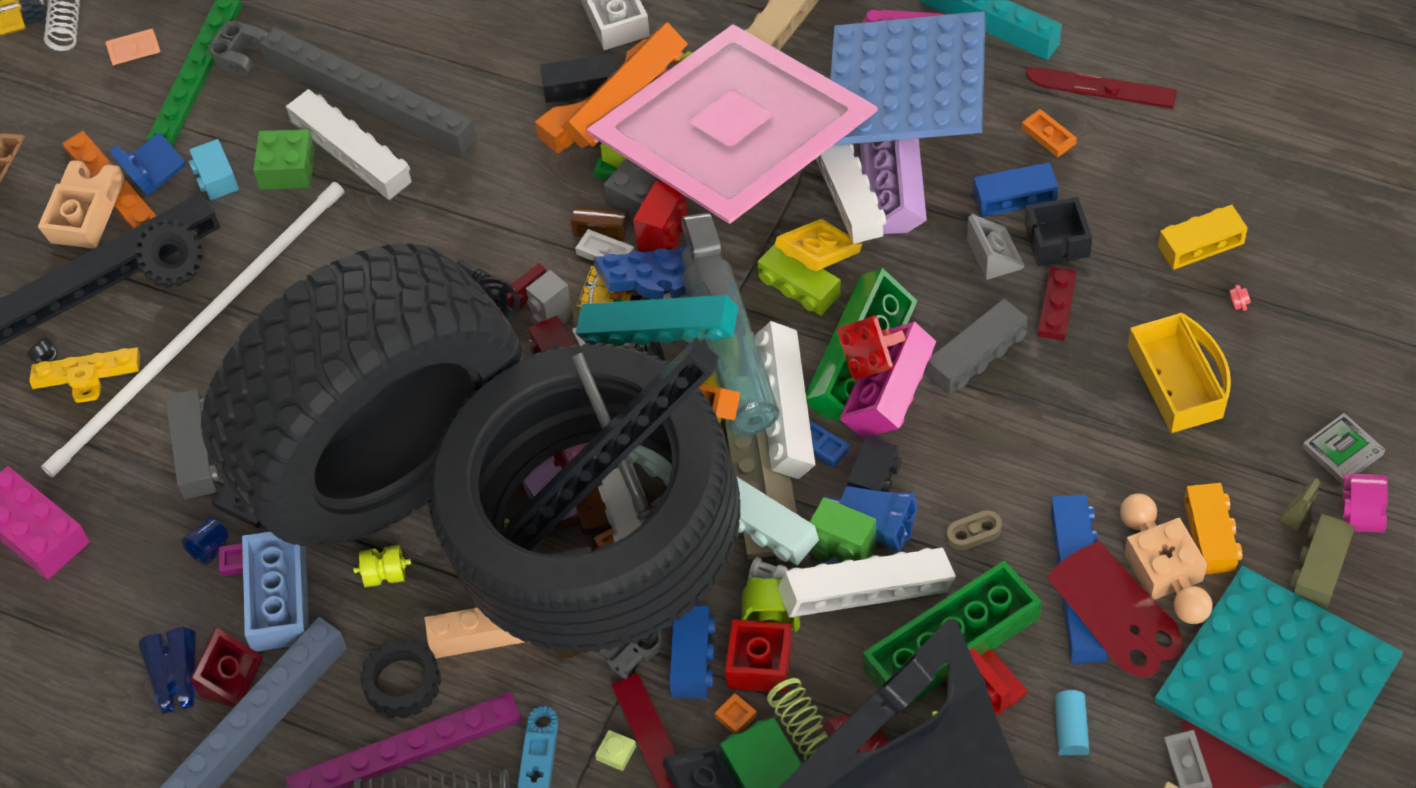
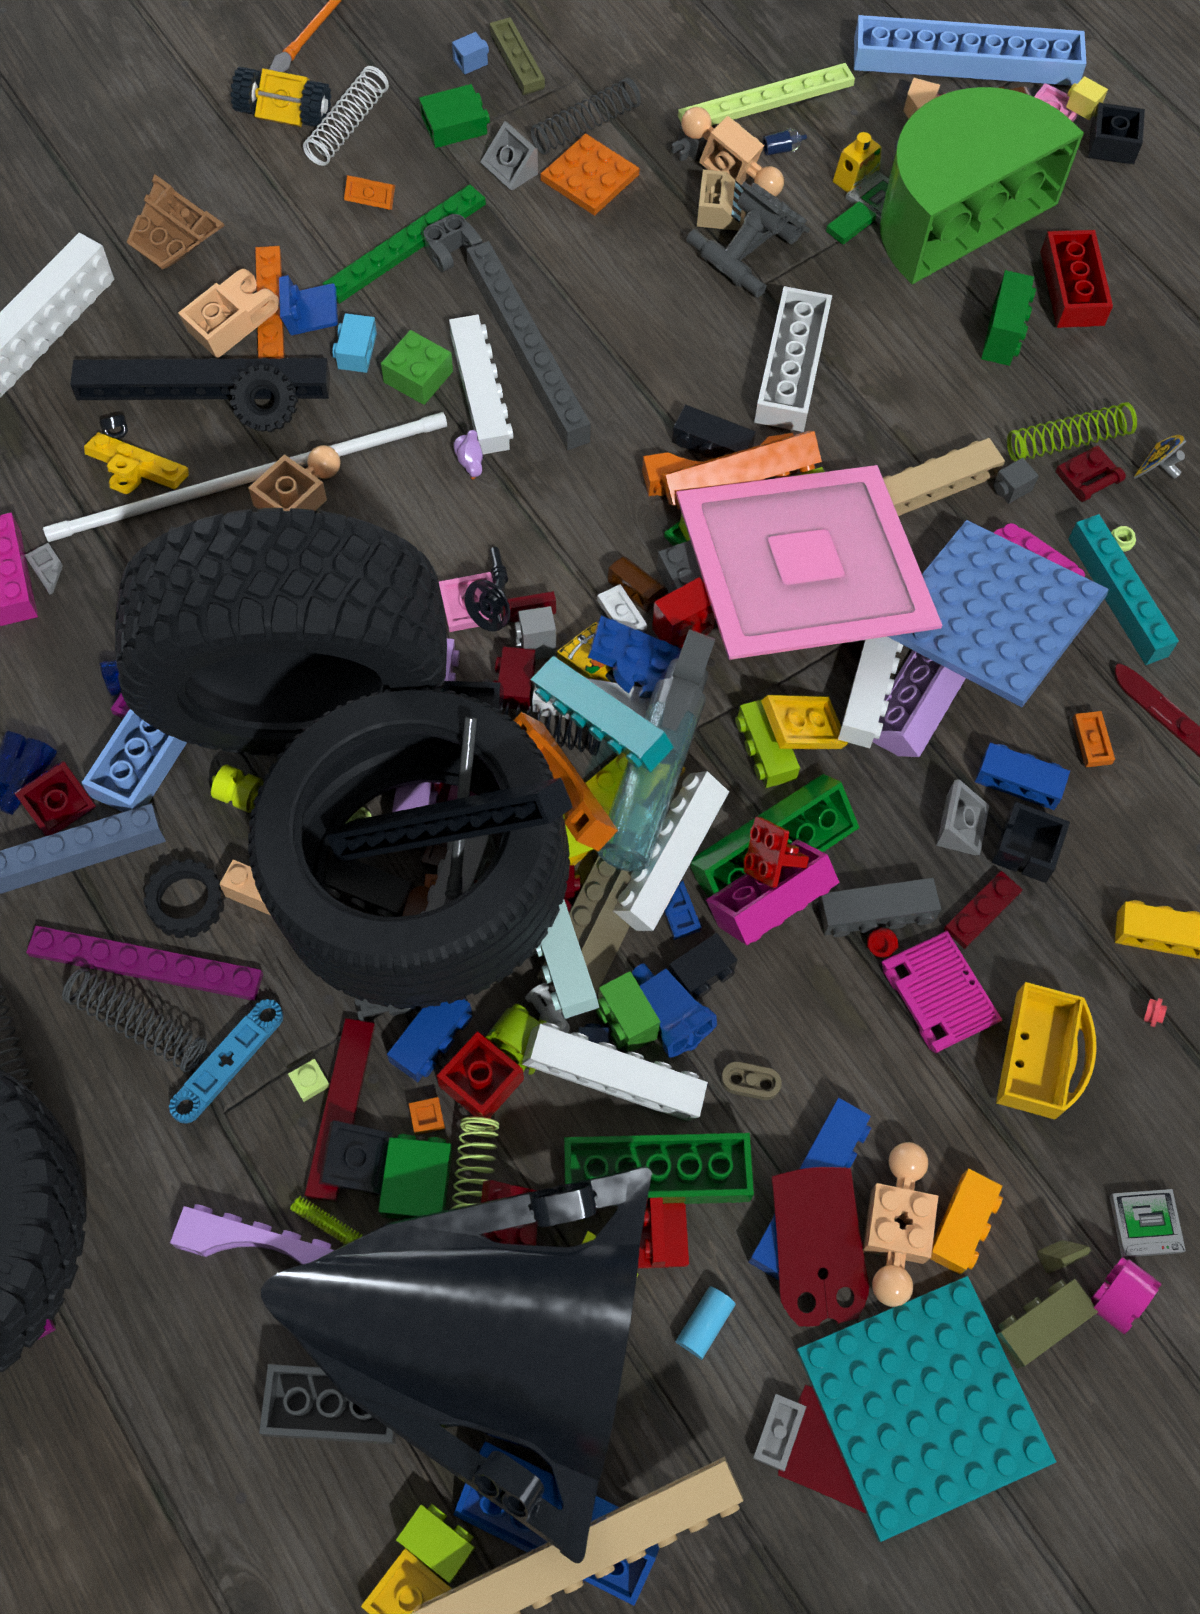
camera: 25 degrees right, 10 degrees up
(67, 497) = (45, 565): none -> light grey tile
(243, 303) = (292, 486): none -> light nougat brick
(382, 200) = (469, 453): none -> lavender animal
(999, 370) = (882, 942): none -> red tile
(1070, 379) = (941, 991): none -> dark pink window

